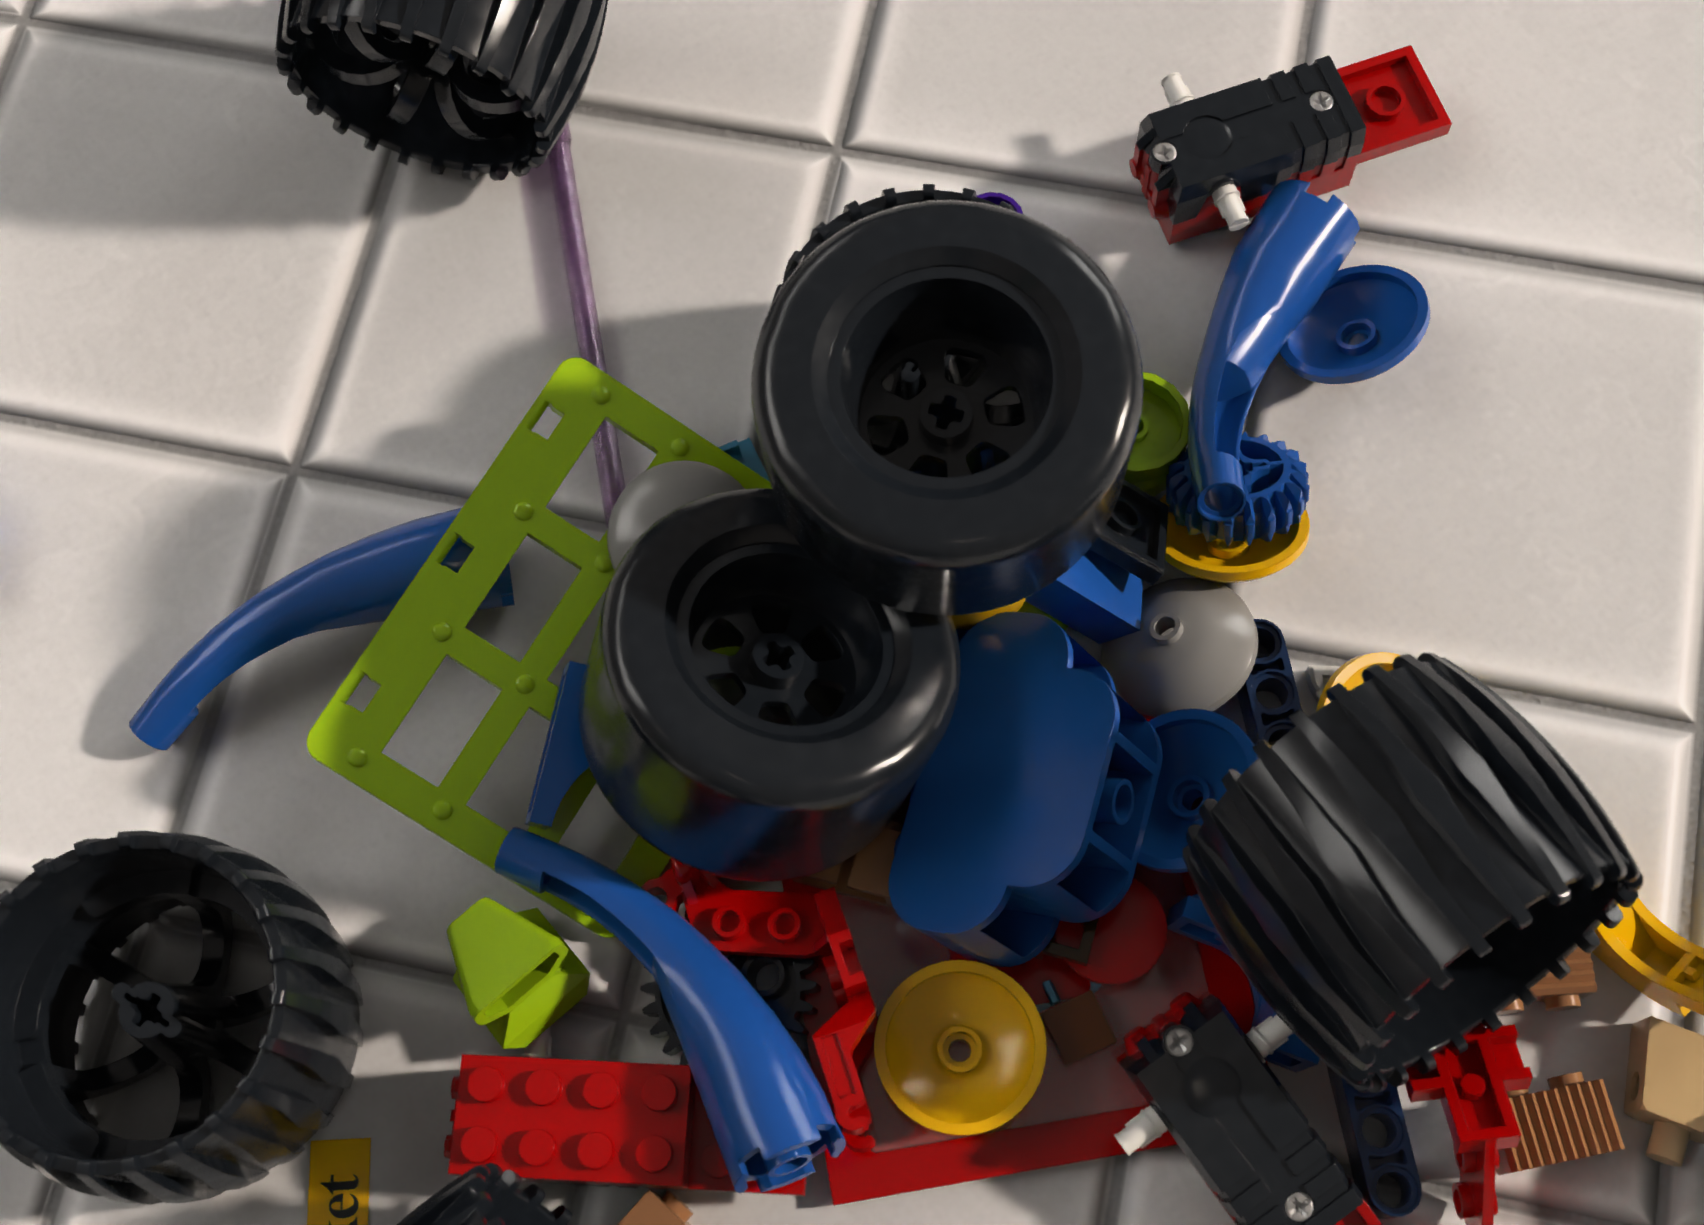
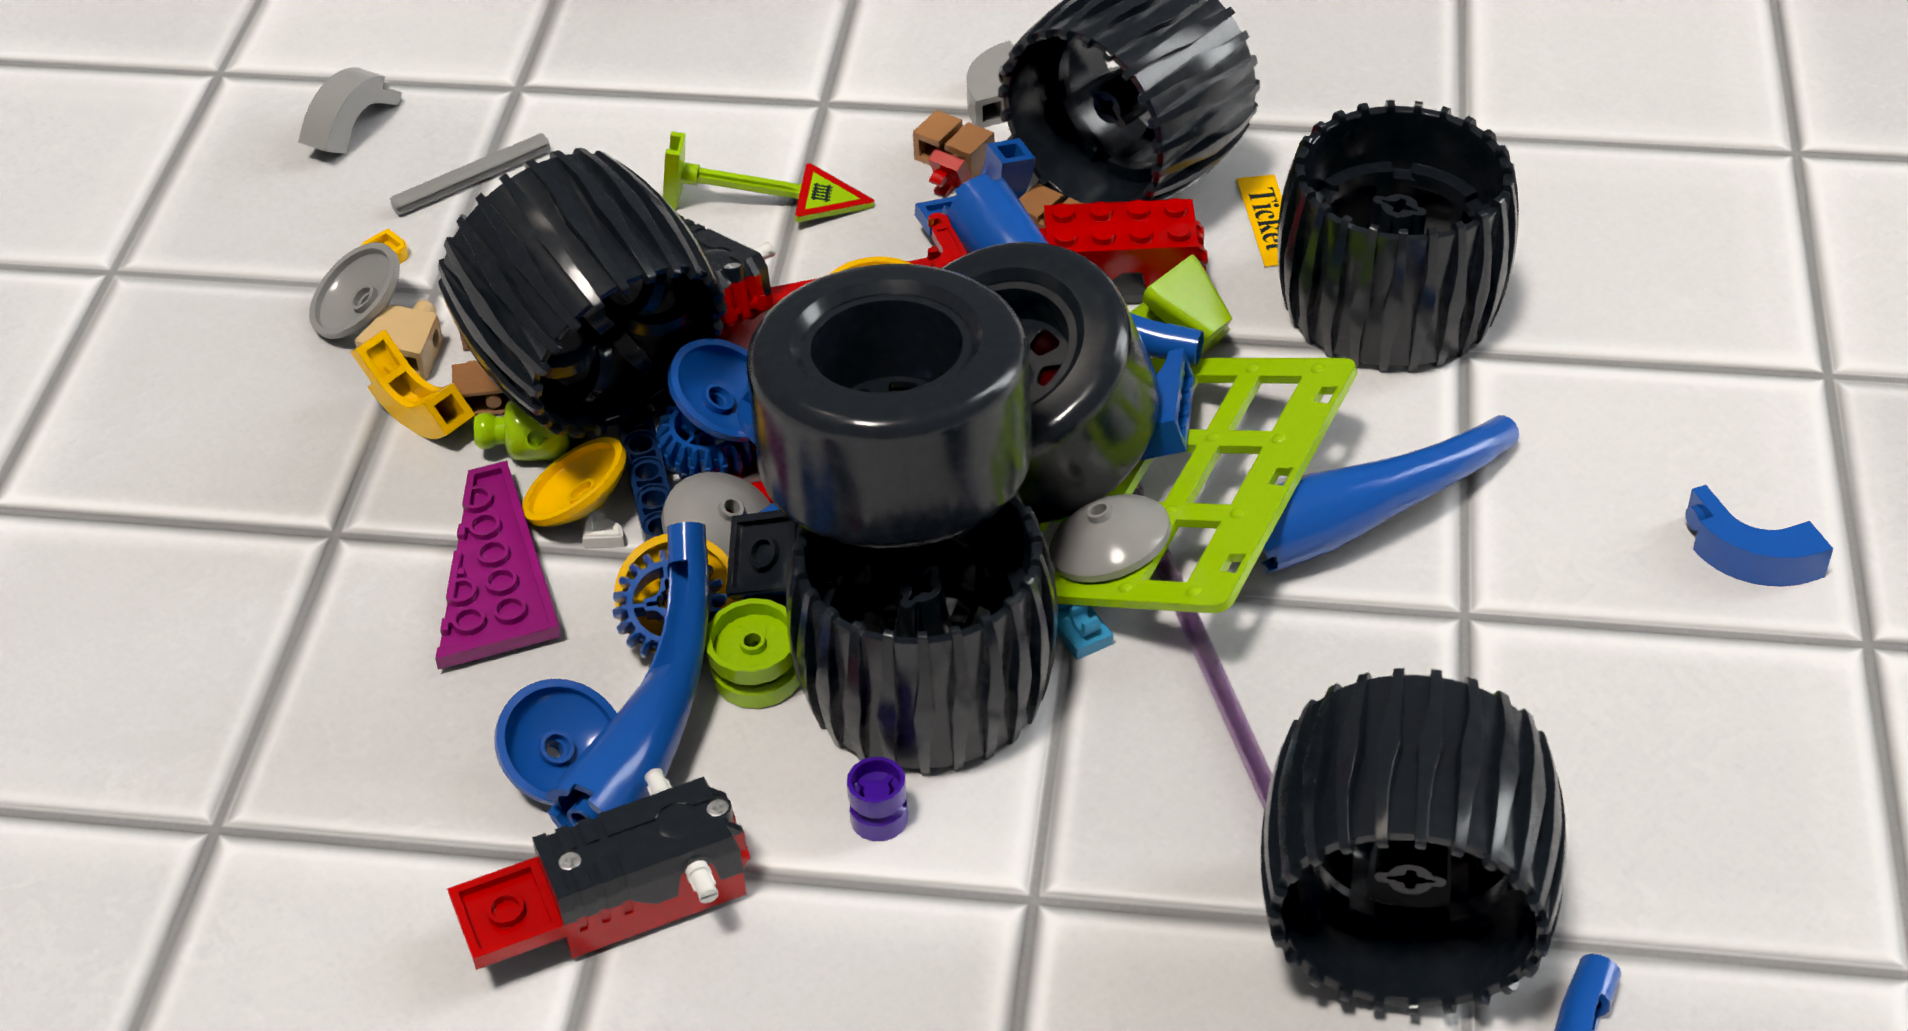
camera: 170 degrees right, 25 degrees down
(1466, 581) = (495, 577): none -> magenta wing

